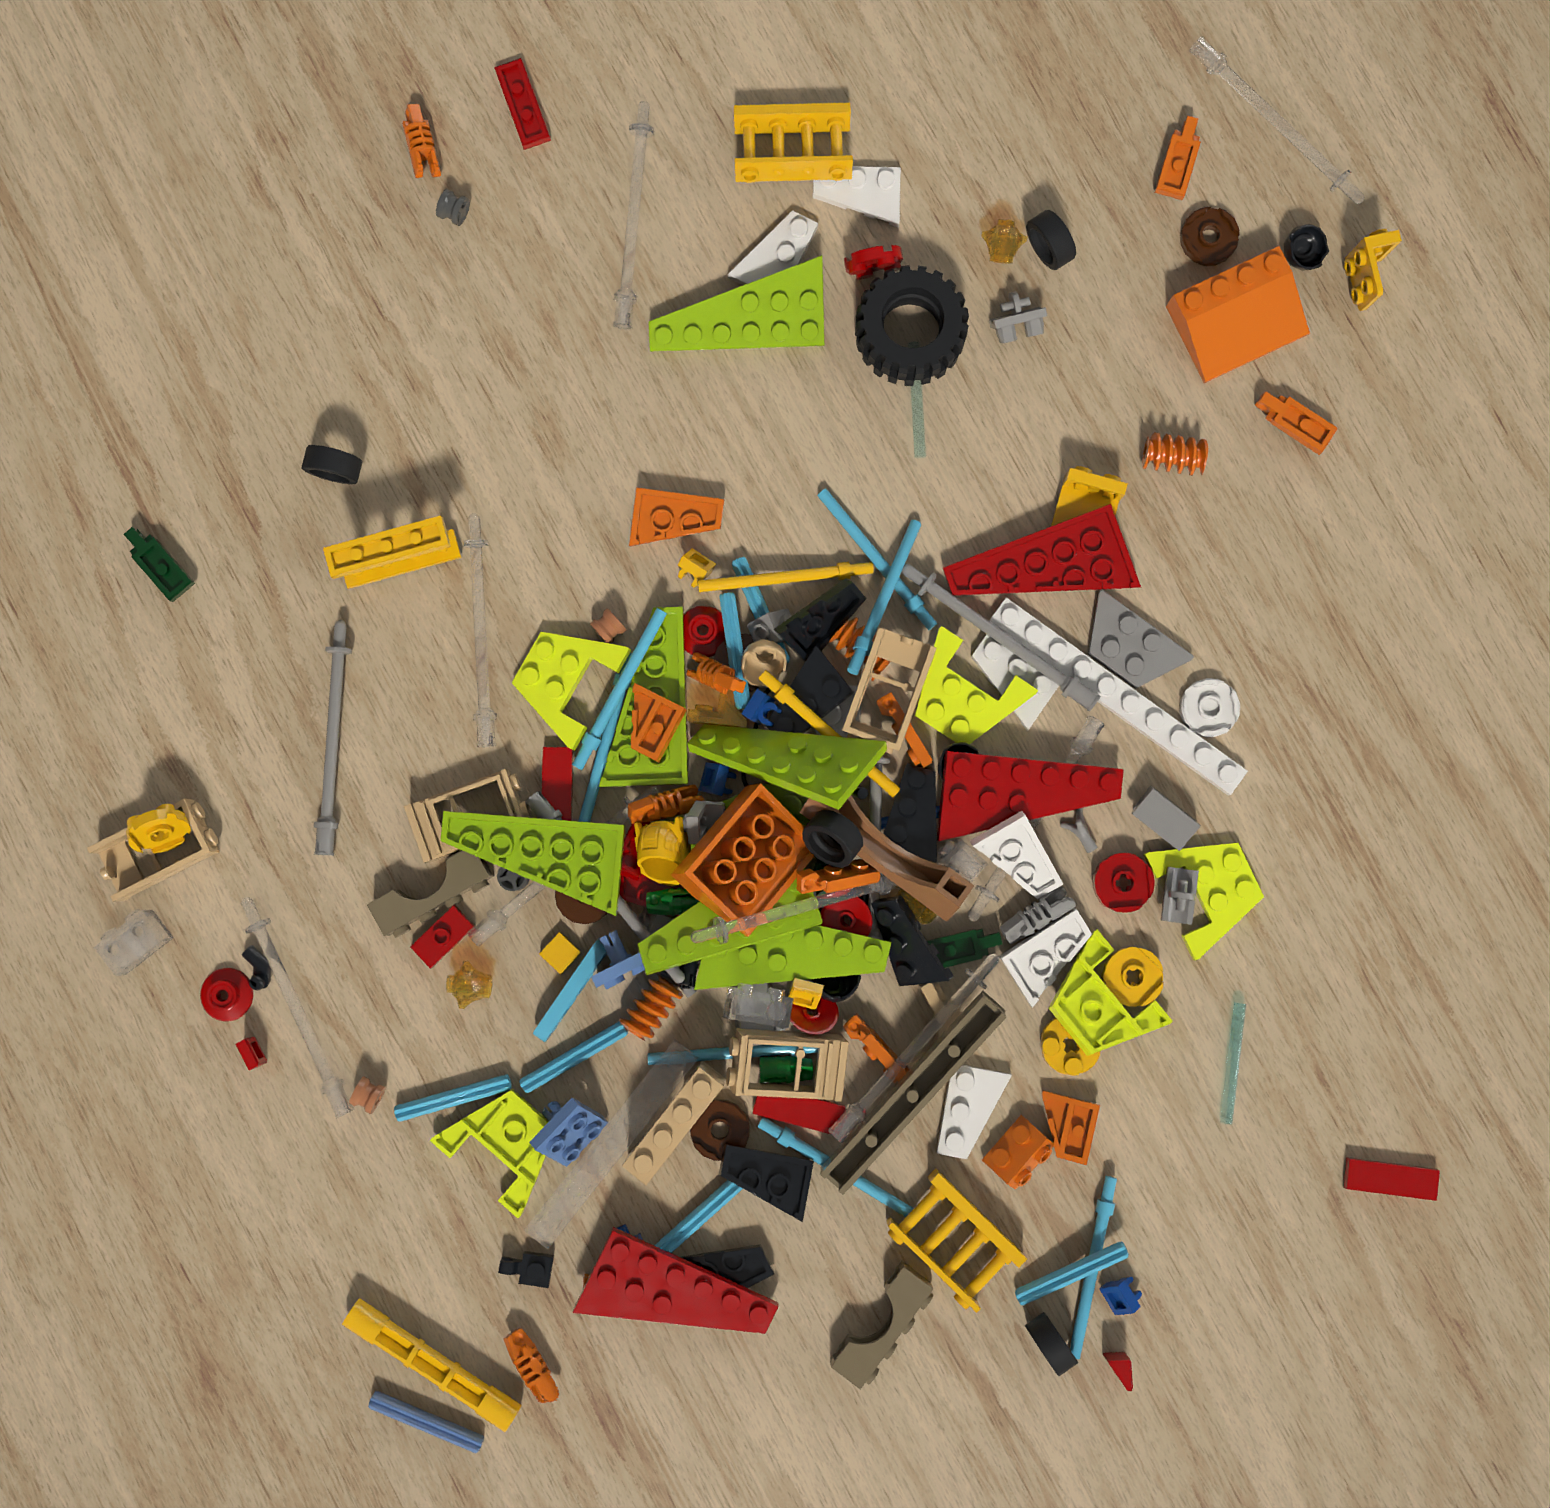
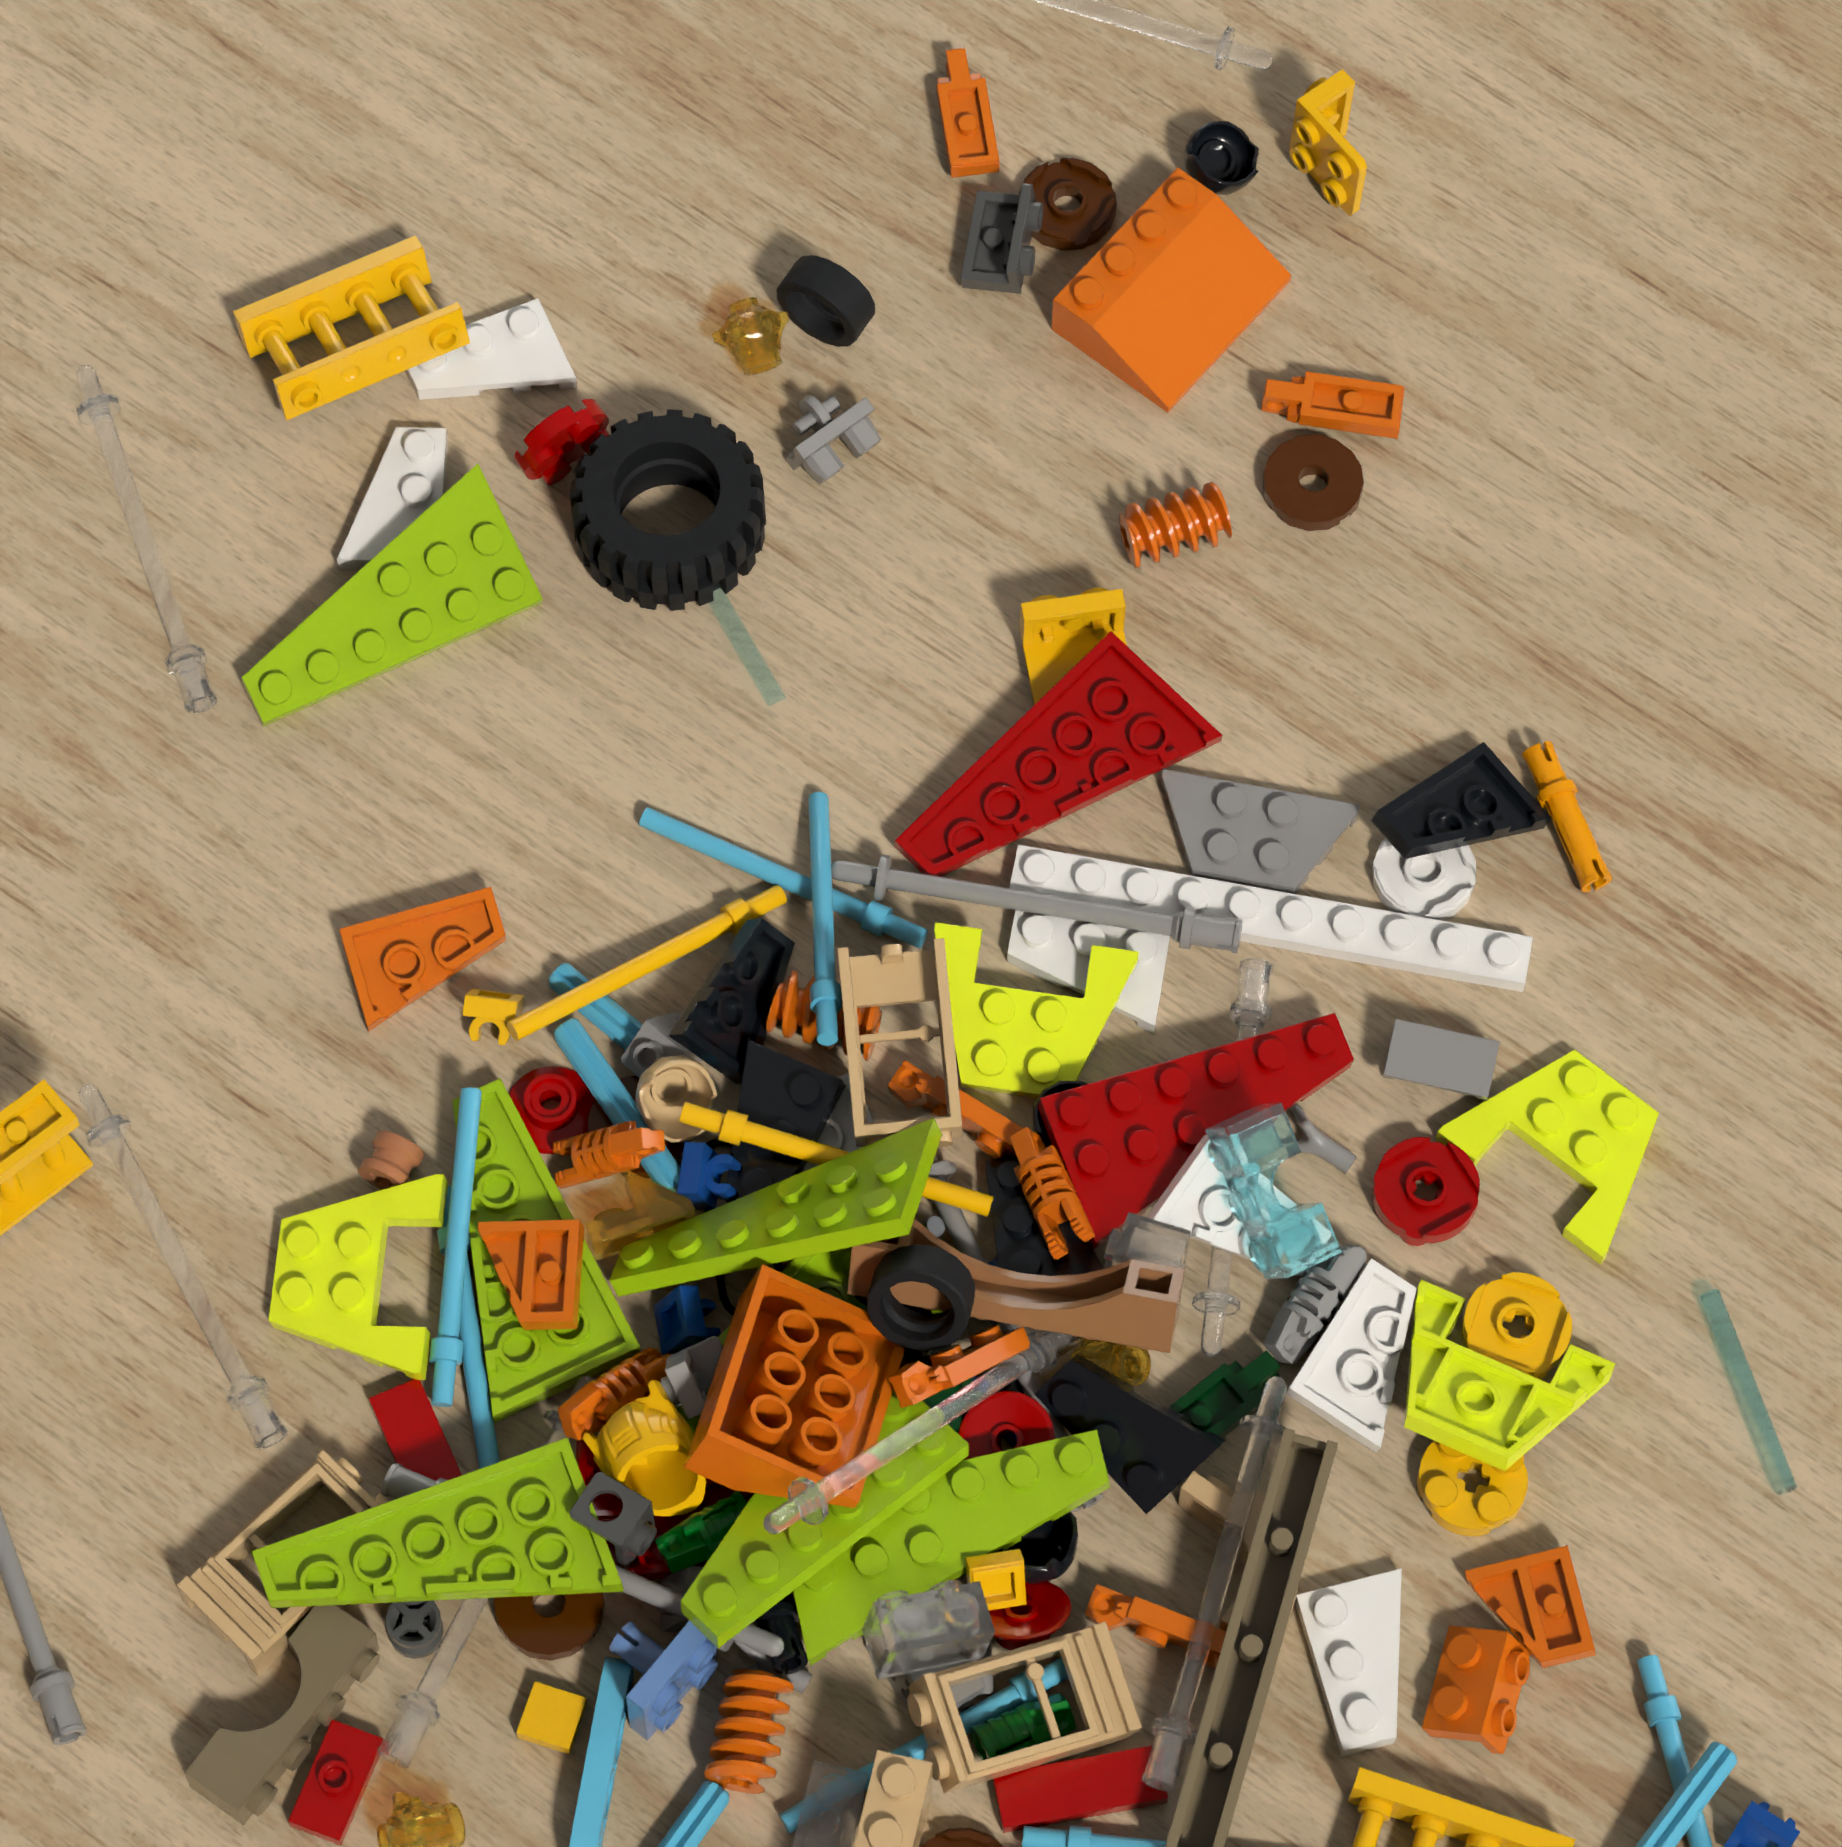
camera: 30 degrees left, 20 degrees down
(634, 887) = (630, 1531): none -> dark grey bracket
(928, 803) = (1049, 1191): none -> orange hinge
(1039, 835) = (1248, 1154): none -> clear light blue arch
(1161, 244) = (1000, 240): none -> dark grey bracket
(1179, 895) = (1523, 1165): light grey hips -> none
(1246, 683) = (1460, 806): none -> black wing
(1273, 448) = (1317, 457): none -> reddish brown tile
(1299, 714) = (1559, 799): none -> light orange pin

